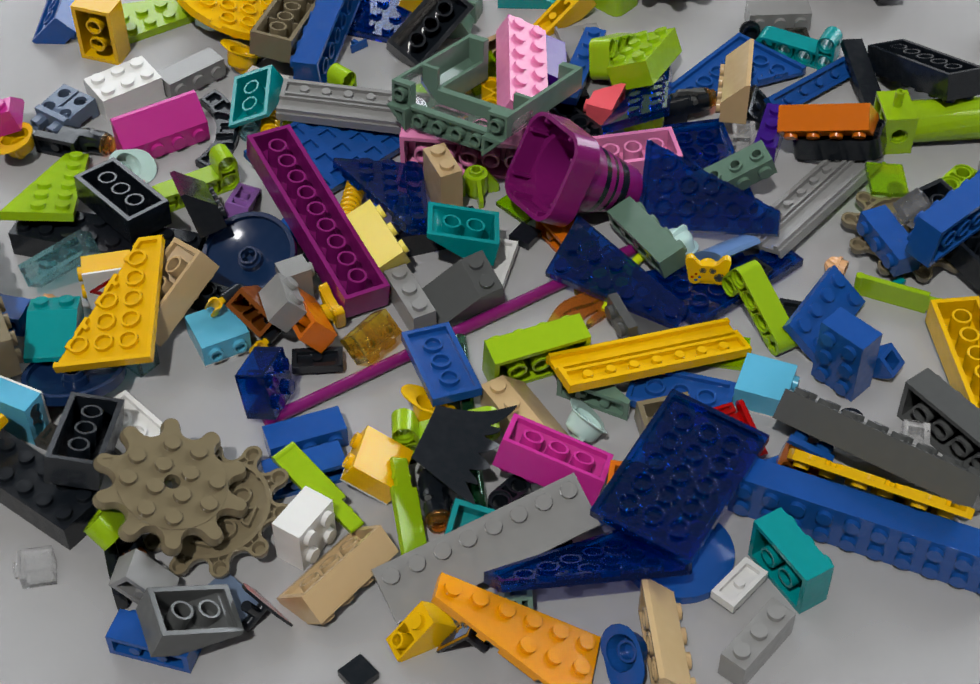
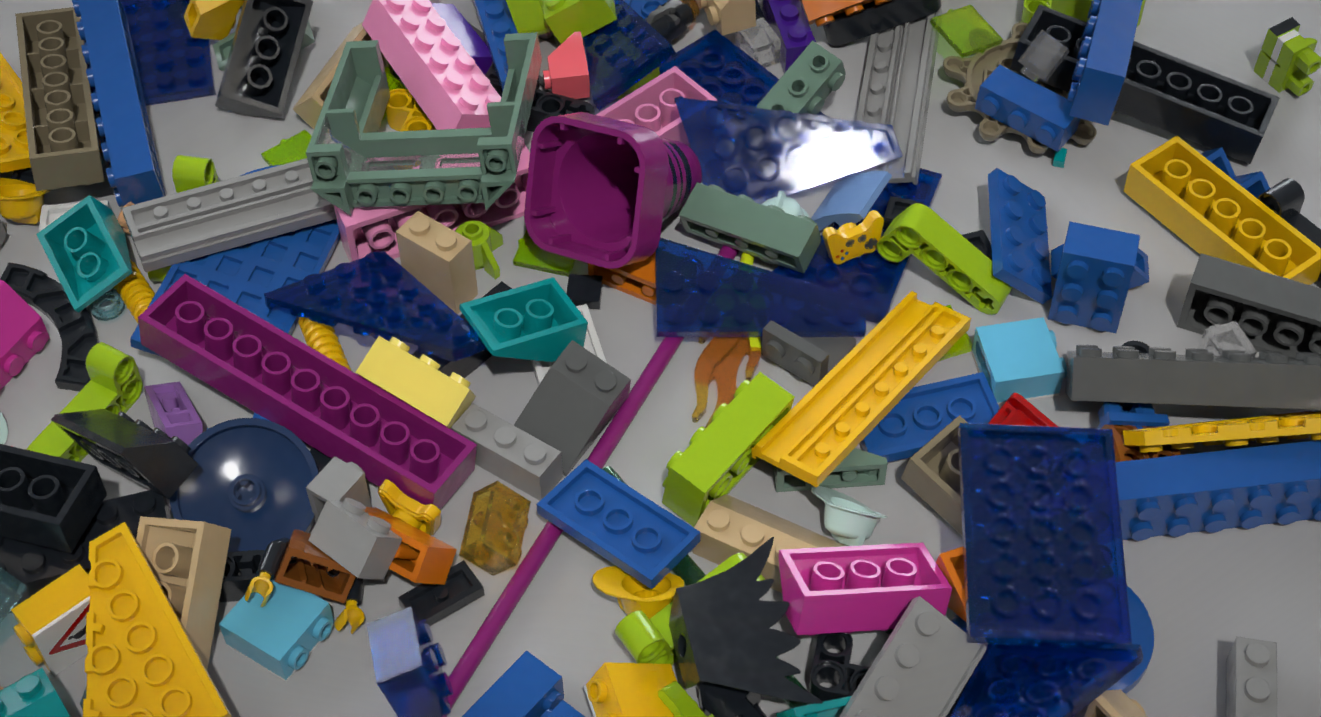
camera: 30 degrees left, 5 degrees up
(358, 45) = (167, 116): blue piece -> none
(738, 584) = (1173, 637): white plate -> none
(791, 560) = (1217, 575): teal brick -> none
(839, 262) = (981, 165): light nougat plate -> none
(892, 292) = (1074, 171): lime piece -> none

